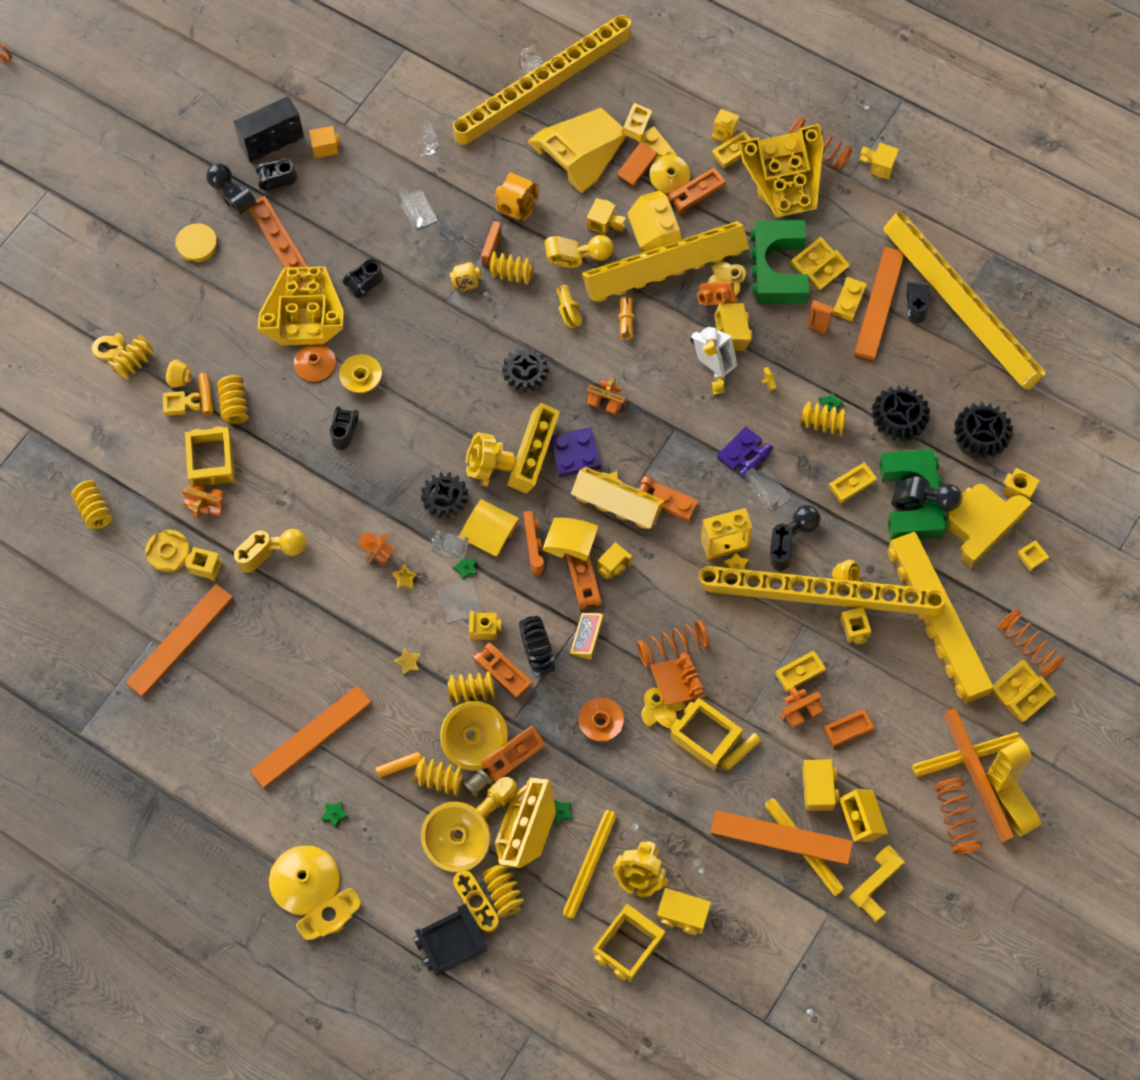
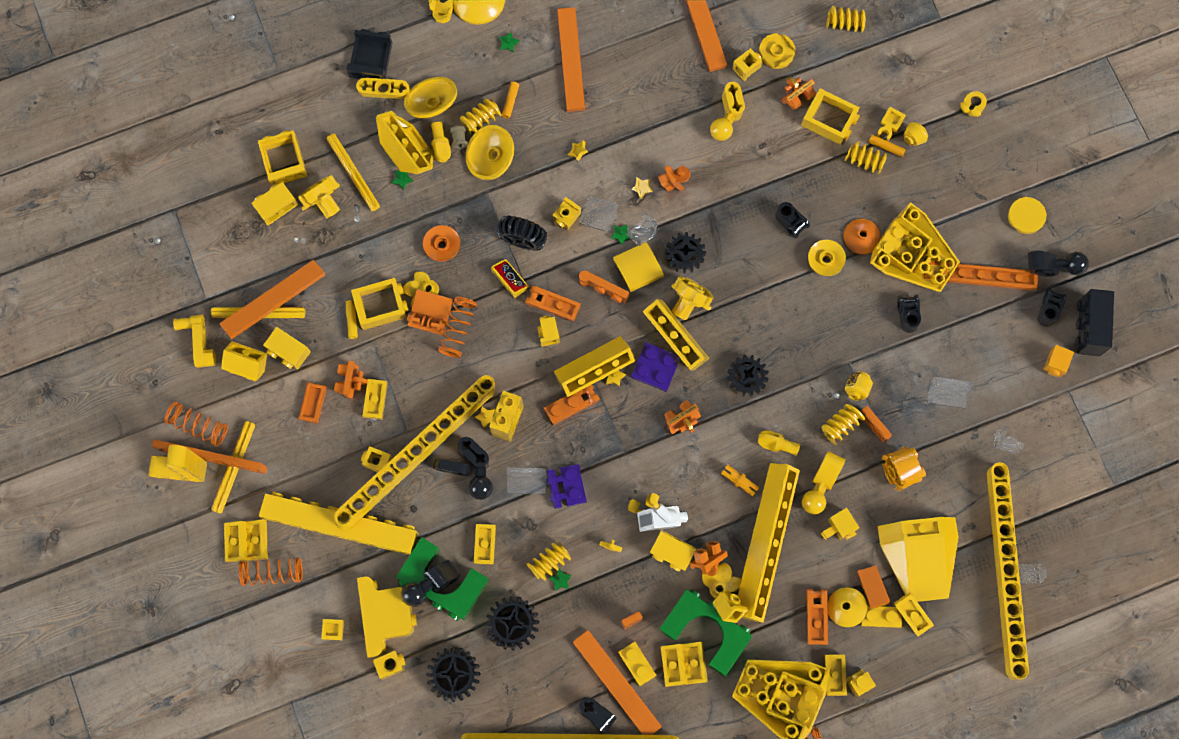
camera: 125 degrees right, 10 degrees up
(131, 357) = (949, 112): yellow piece -> none
(471, 687) = (525, 175): yellow piece -> none
(502, 890) = (373, 106): yellow piece -> none
(503, 671) = (526, 205): orange plate -> none
(513, 753) = (461, 172): orange plate -> none
(570, 537) = (587, 312): yellow slope -> none
(653, 221) = (810, 561): yellow wedge -> none
(746, 250) = (729, 607): none -> yellow brick
(808, 557) = (451, 467): none -> black beam
(847, 571) = (417, 483): yellow cone -> none

